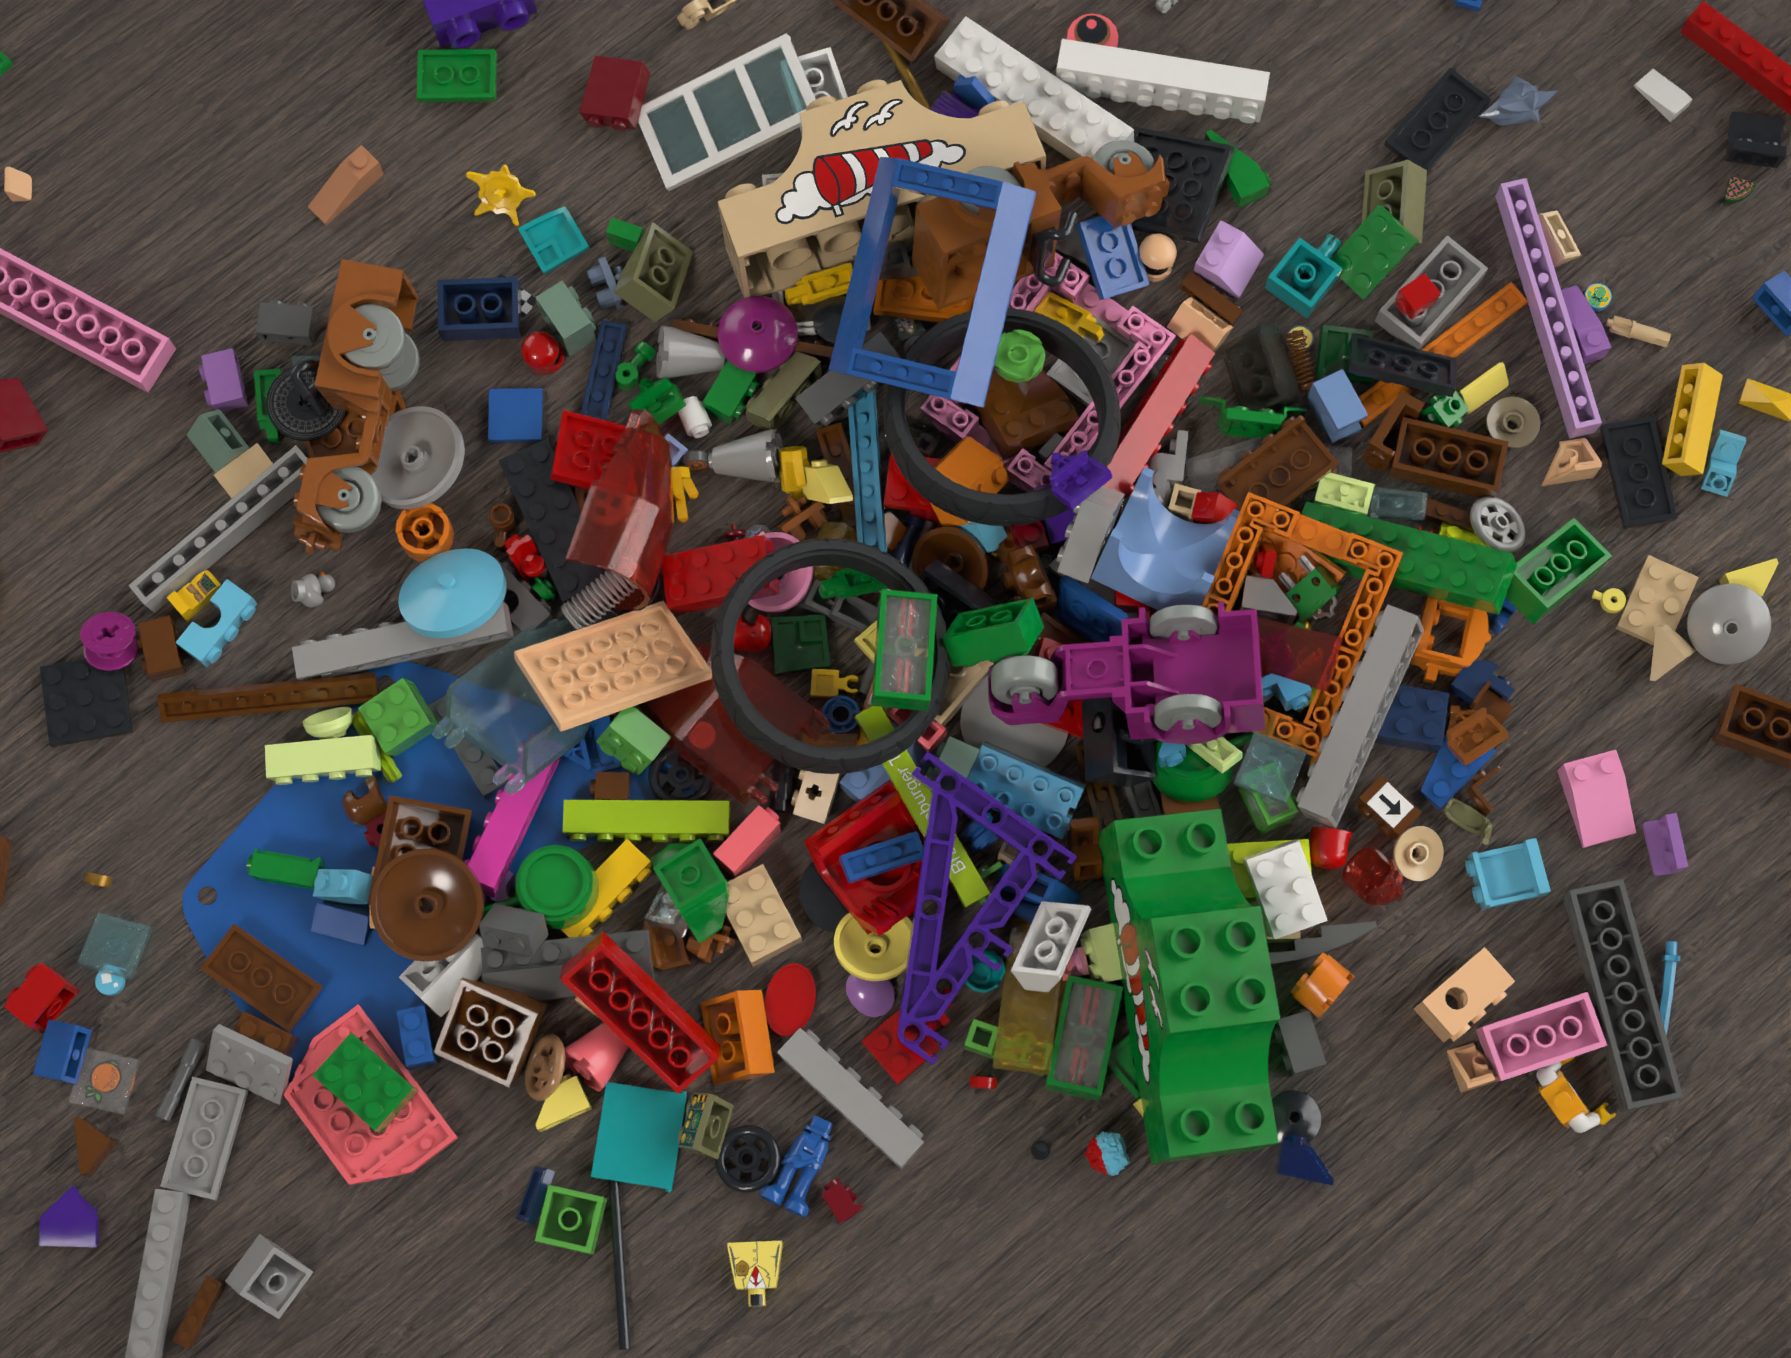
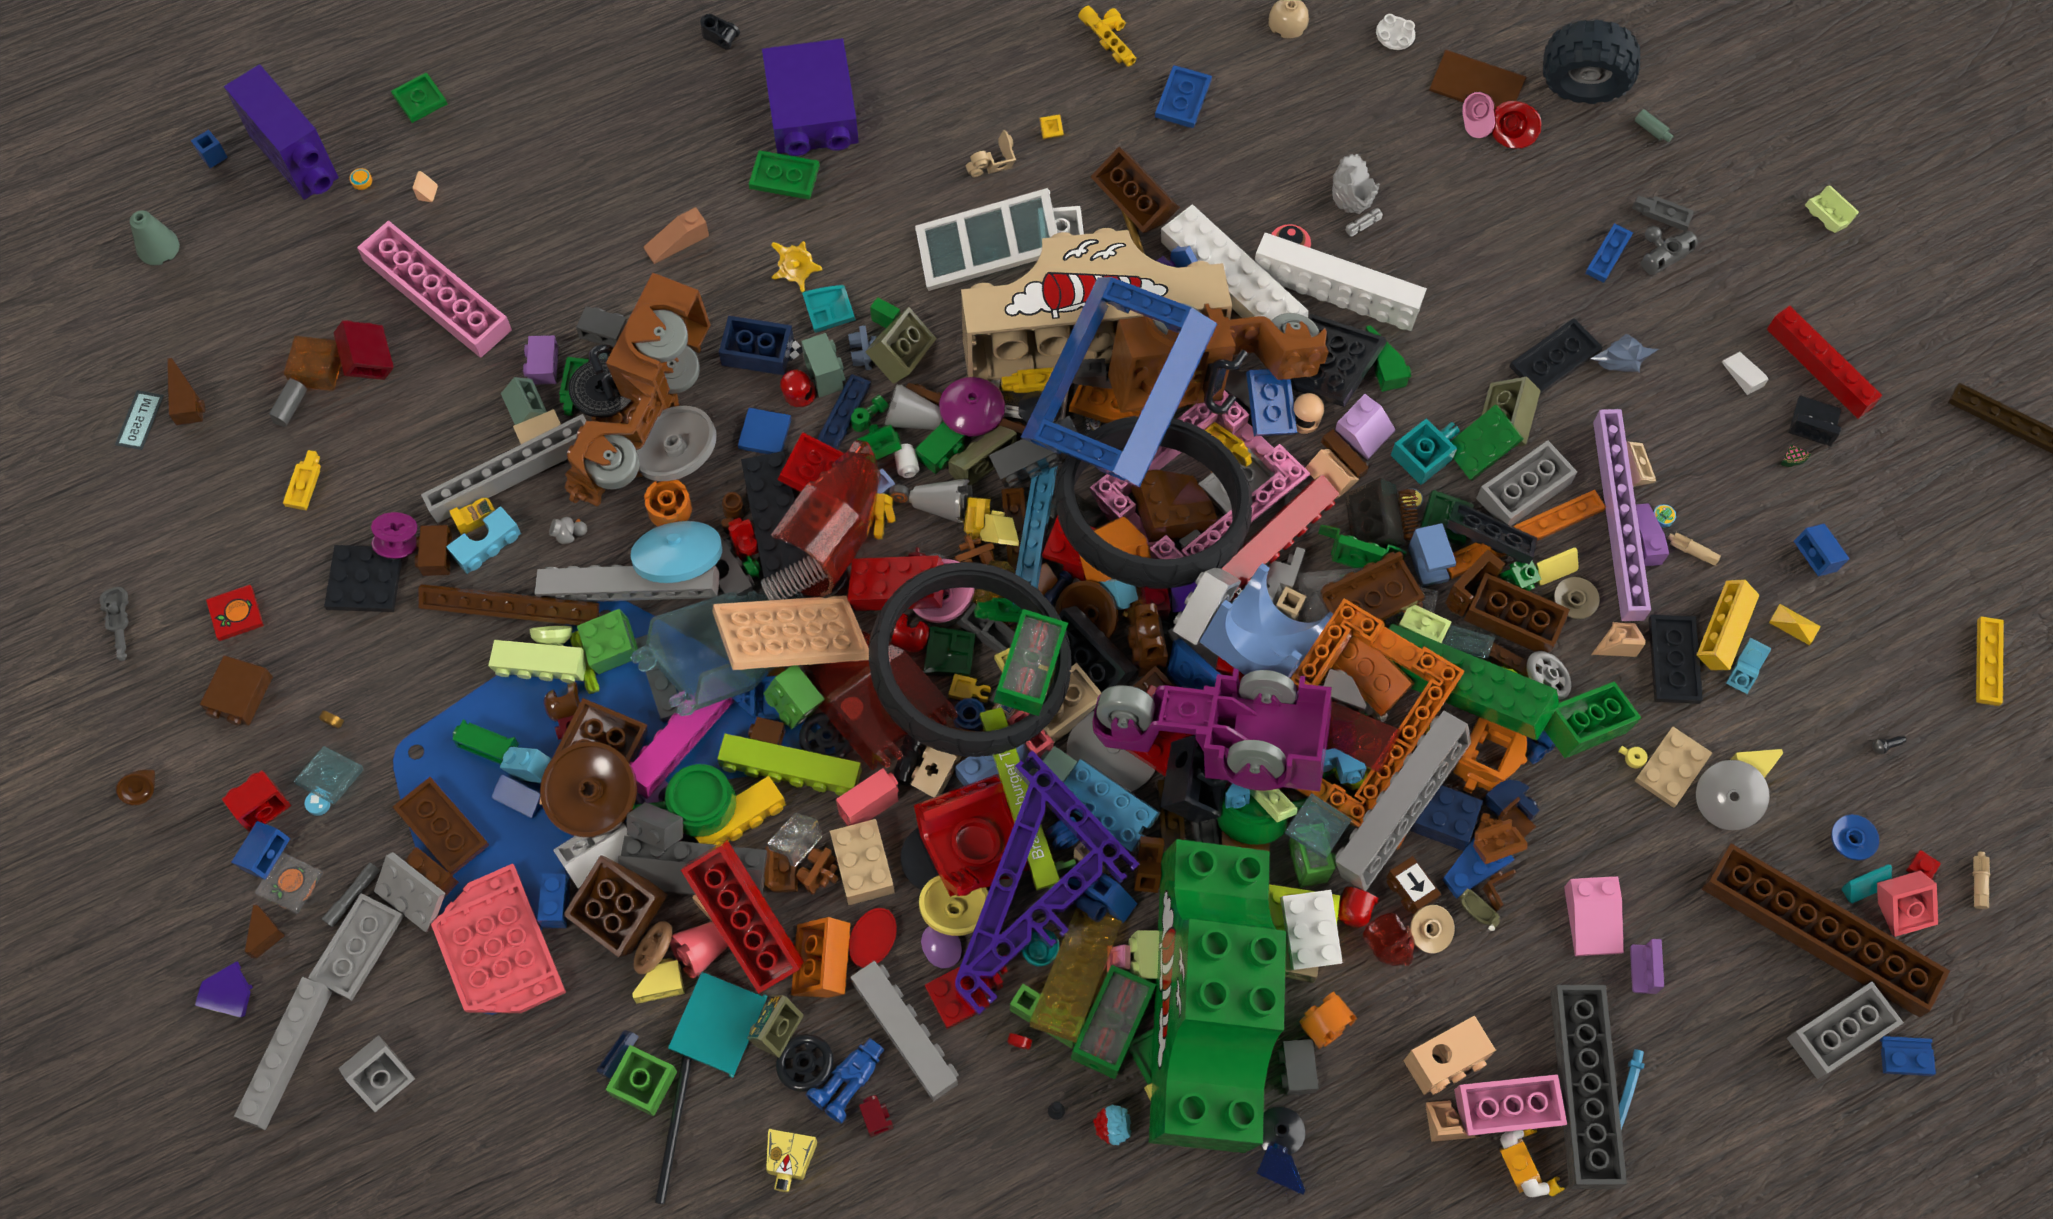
camera: 10 degrees right, 10 degrees down
(199, 1312) = (310, 1091): reddish brown piece -> none
(365, 1083) = (500, 927): green brick -> none
(614, 93) = (903, 209): dark red brick -> none
(694, 886) = (814, 825): green piece -> none
(882, 857) = (975, 834): blue plate -> none
(993, 633) = (1108, 667): green brick -> none
(1019, 356) = (1177, 455): bright green tile -> none
(1049, 945) = (1099, 933): white slope -> none
(1076, 477) = (1203, 554): dark purple slope -> none
(1211, 507) = (1311, 610): red brick -> none
(1265, 560) = (1348, 659): red plate -> none
(1313, 592) = (1383, 694): green piece -> none
(1329, 939) = (1343, 984): dark grey slope -> none
(1417, 296) = (1514, 480): red brick -> none
(1507, 874) = (1506, 963): medium azure panel -> none
(1668, 651) = (1676, 807): tan slope -> none

